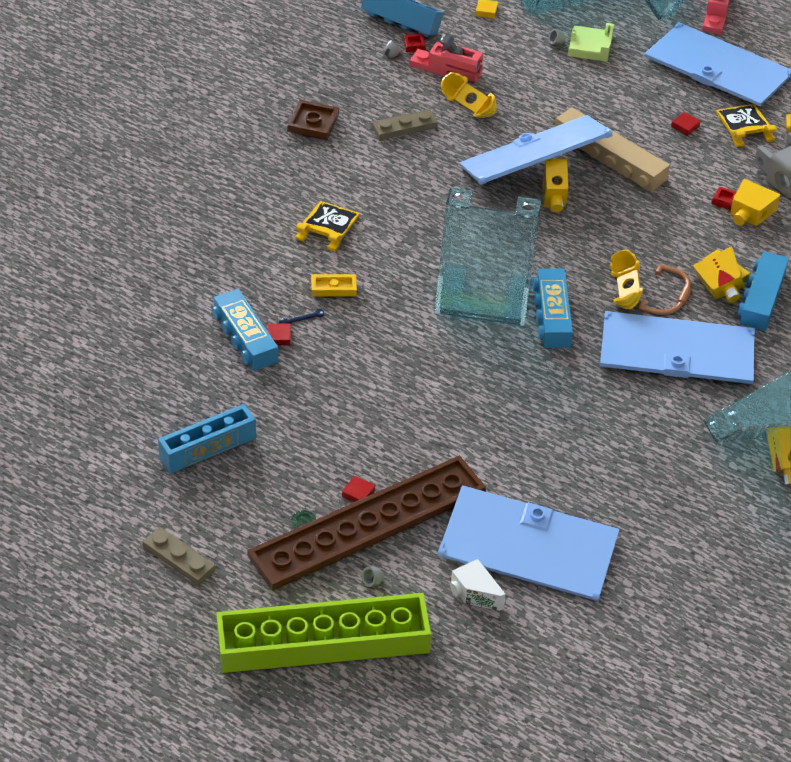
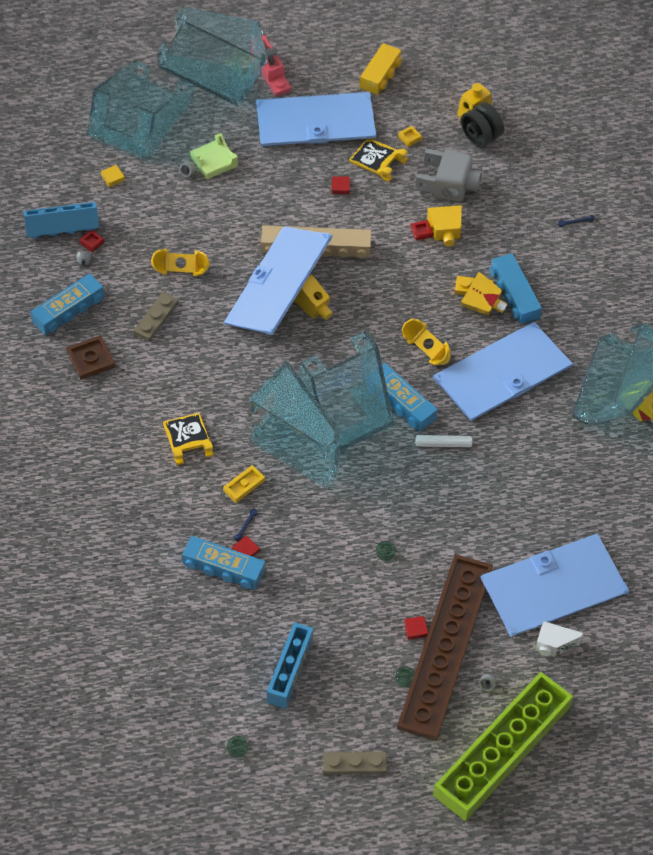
camera: 40 degrees left, 10 degrees up
(95, 473) = (237, 746): none -> clear green tile
(338, 71) = (67, 304): none -> dark azure brick
(401, 415) = (385, 550): none -> clear green tile
(414, 262) = (296, 427): none -> clear light blue windscreen
(449, 57) = (136, 239): coral plate -> none
(556, 366) = (443, 441): none -> white axle
(682, 298) = (467, 324): nougat piece -> none

